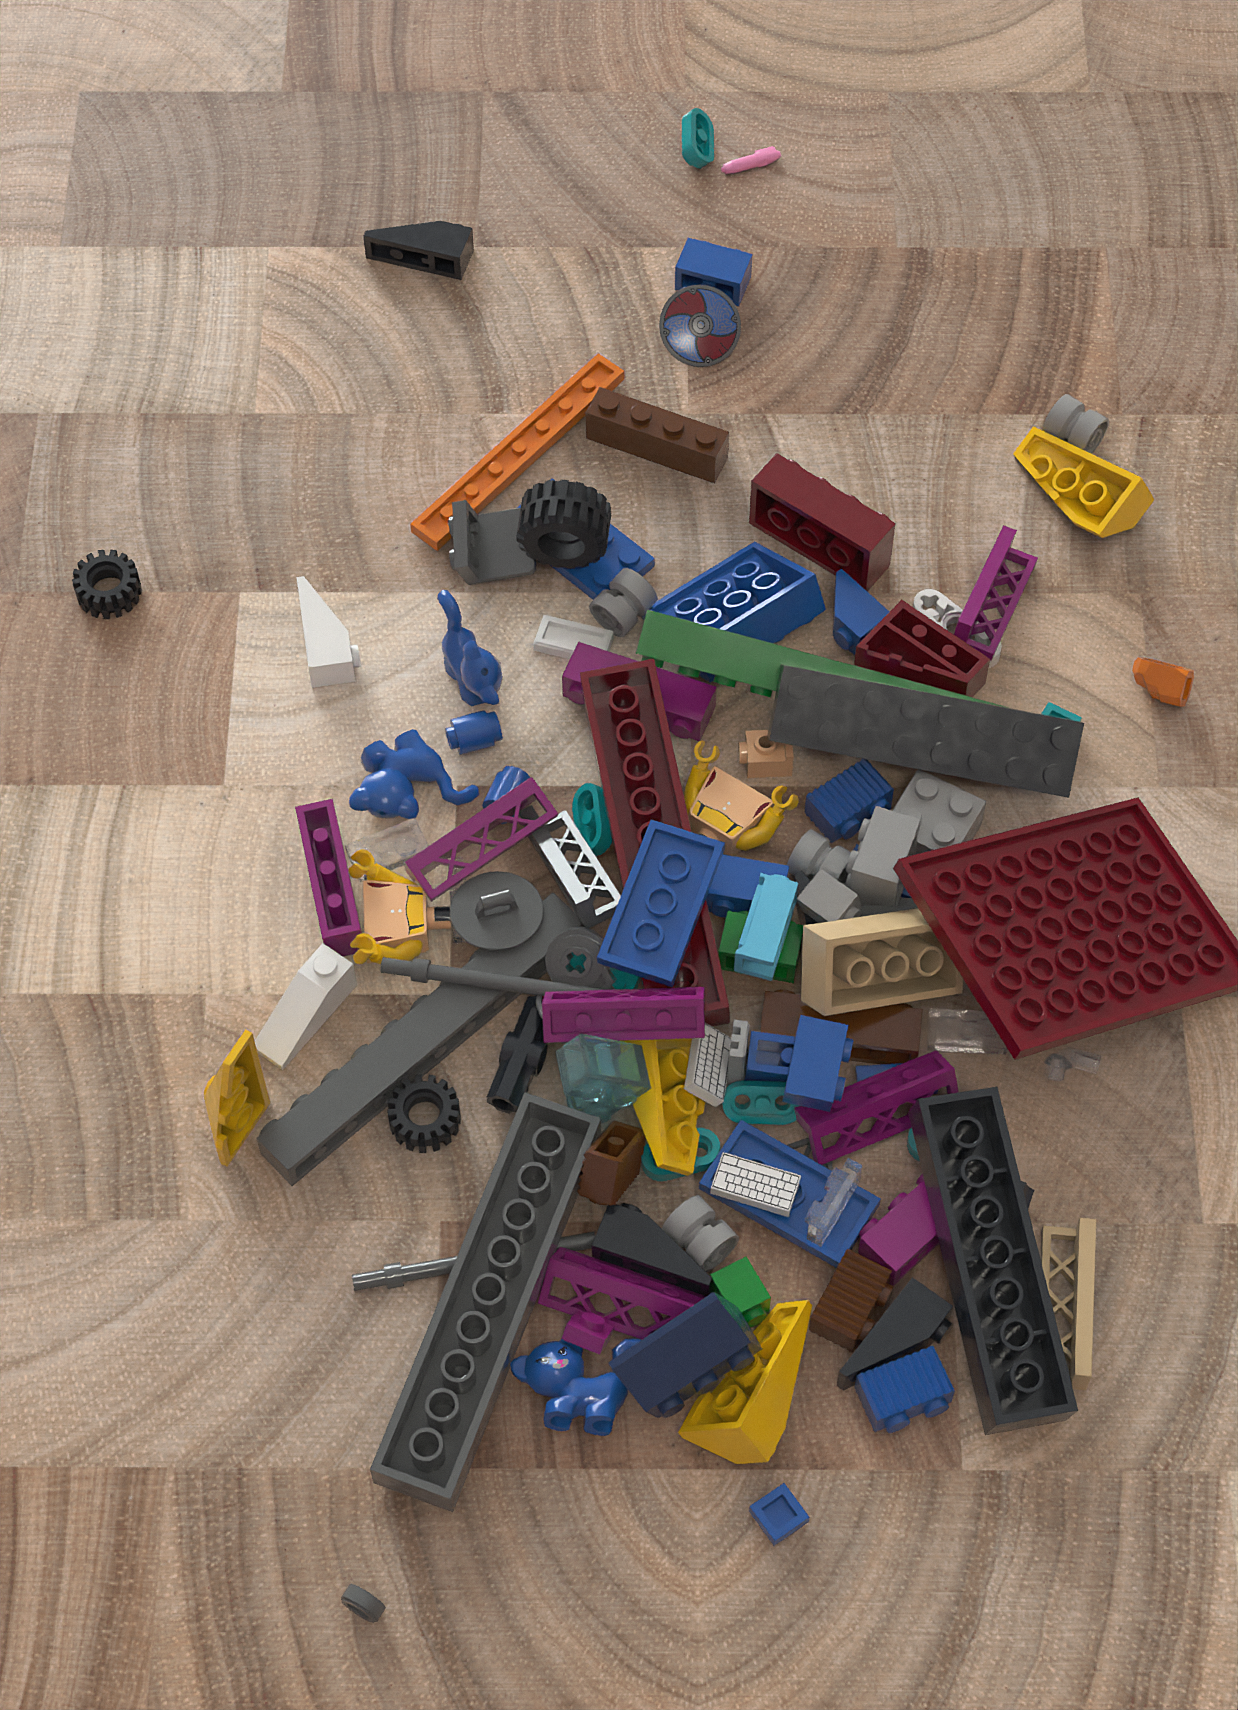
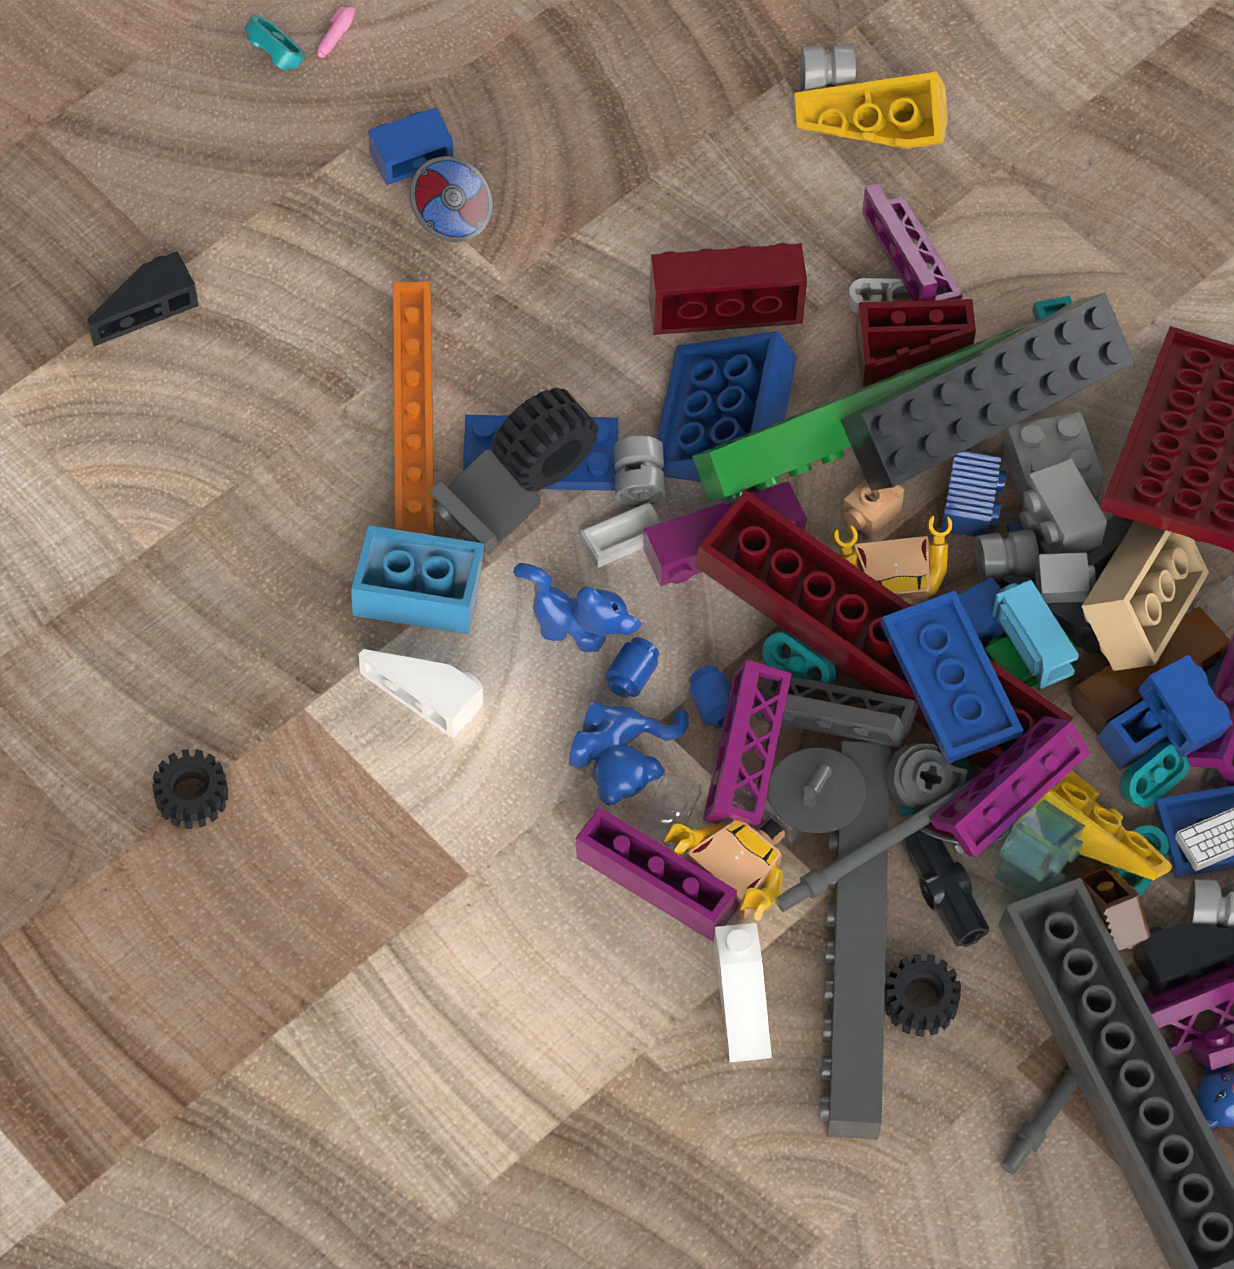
camera: 45 degrees left, 0 degrees up
(236, 1098) = (778, 1101): yellow wedge -> none
(391, 559) = (417, 579): none -> dark azure slope
(657, 435) = (515, 315): reddish brown brick -> none
(708, 1066) = (1098, 784): white tile -> none
(738, 1051) = (1103, 747): light grey tile -> none
(853, 612) = (821, 344): blue slope -> none
(1164, 680) = (1095, 221): orange rock -> none

